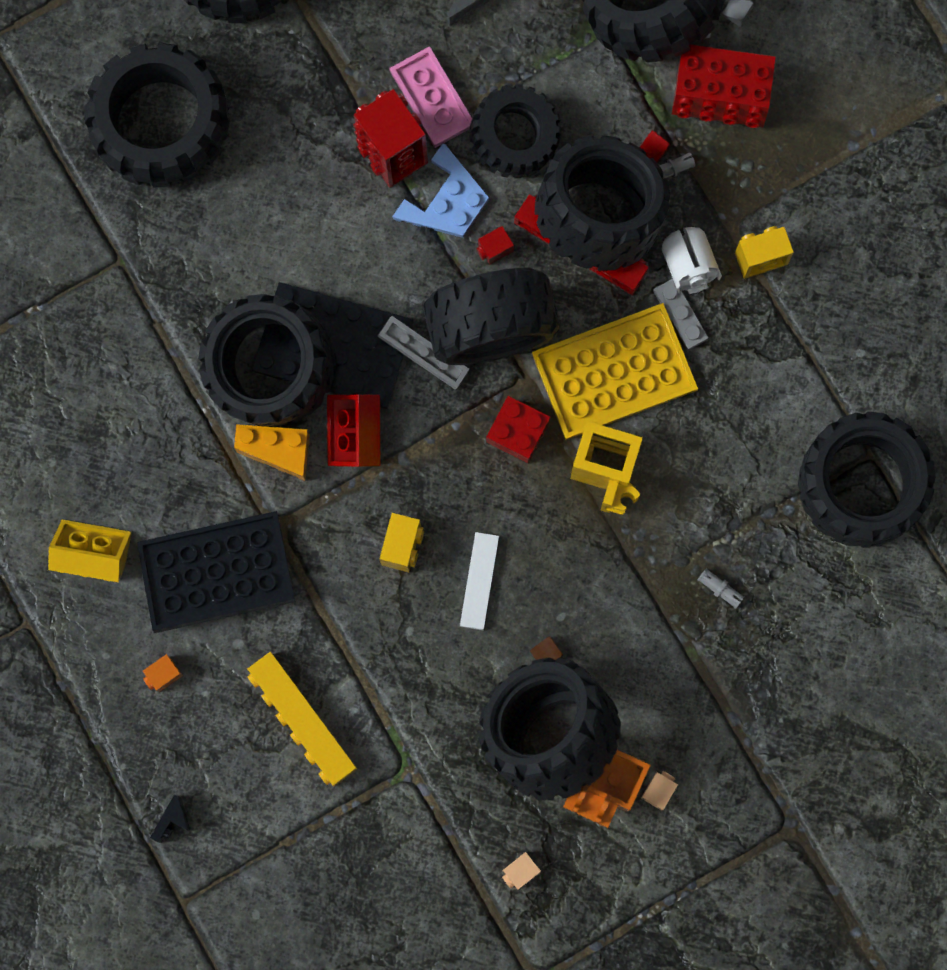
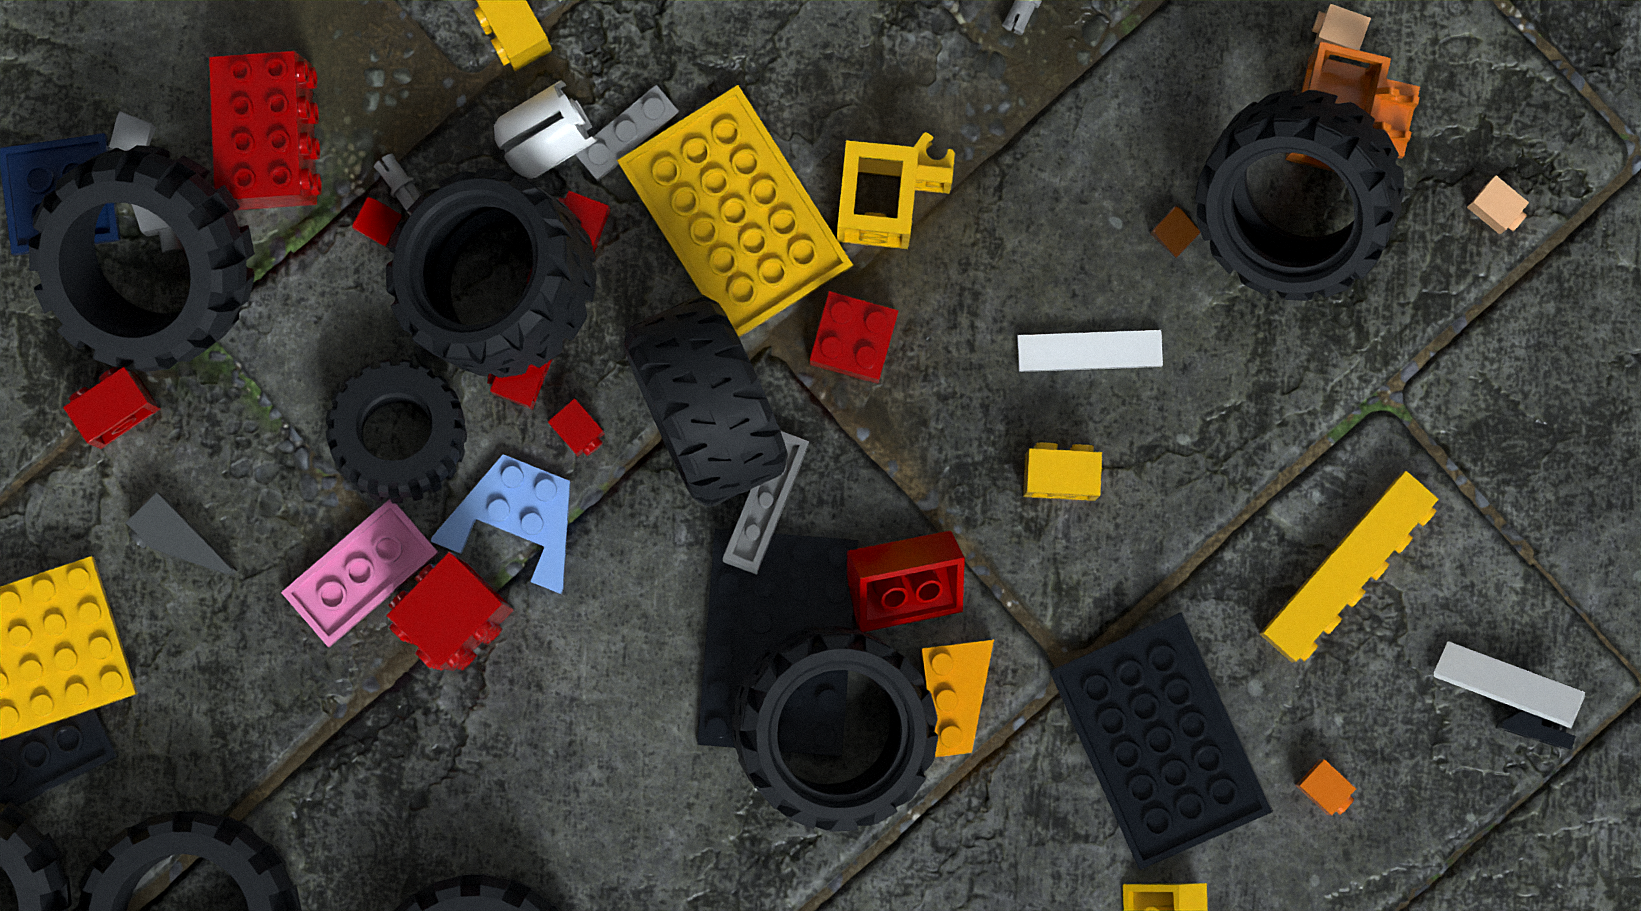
camera: 105 degrees left, 5 degrees up
(201, 806) = (1509, 684): none -> white tile

